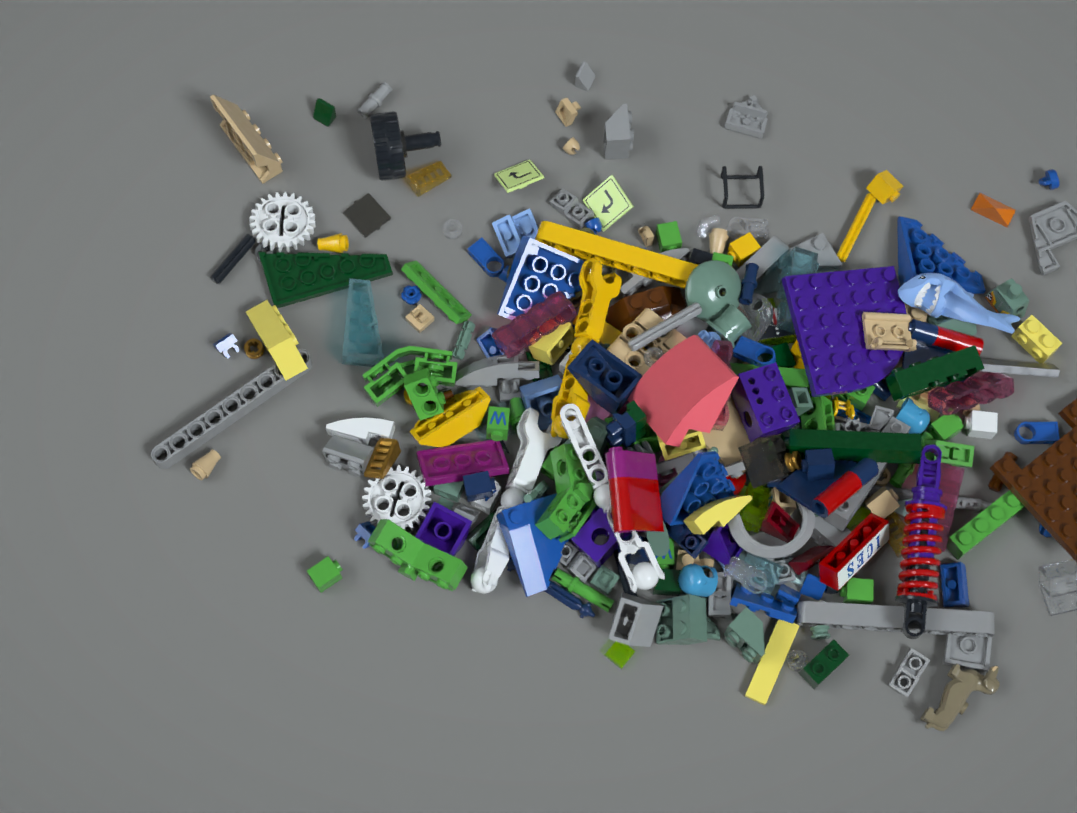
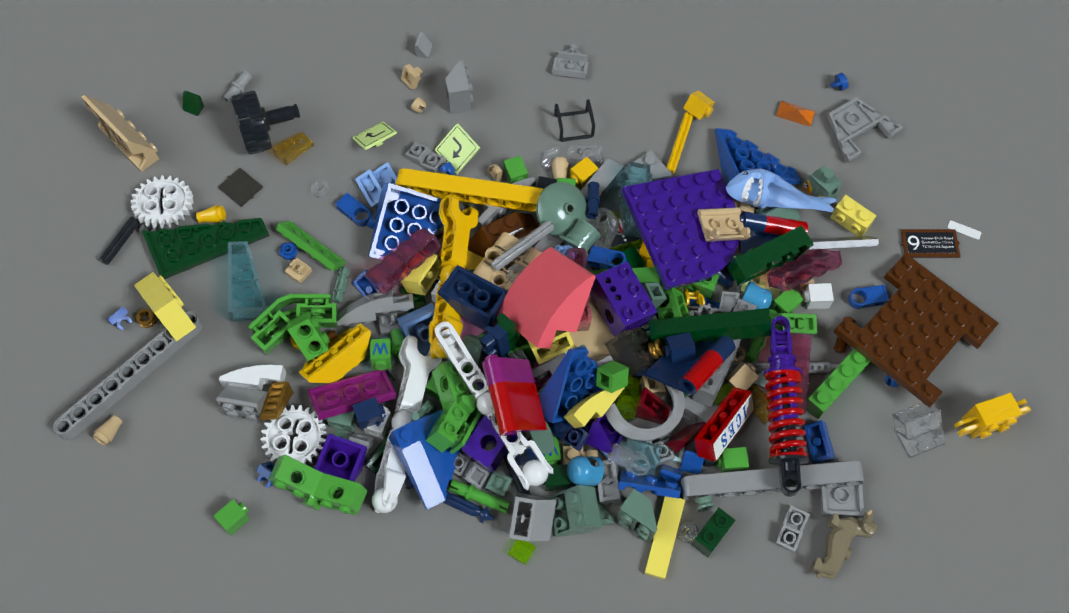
camera: 10 degrees left, 5 degrees down
(741, 485) = (612, 376): none -> bright green brick

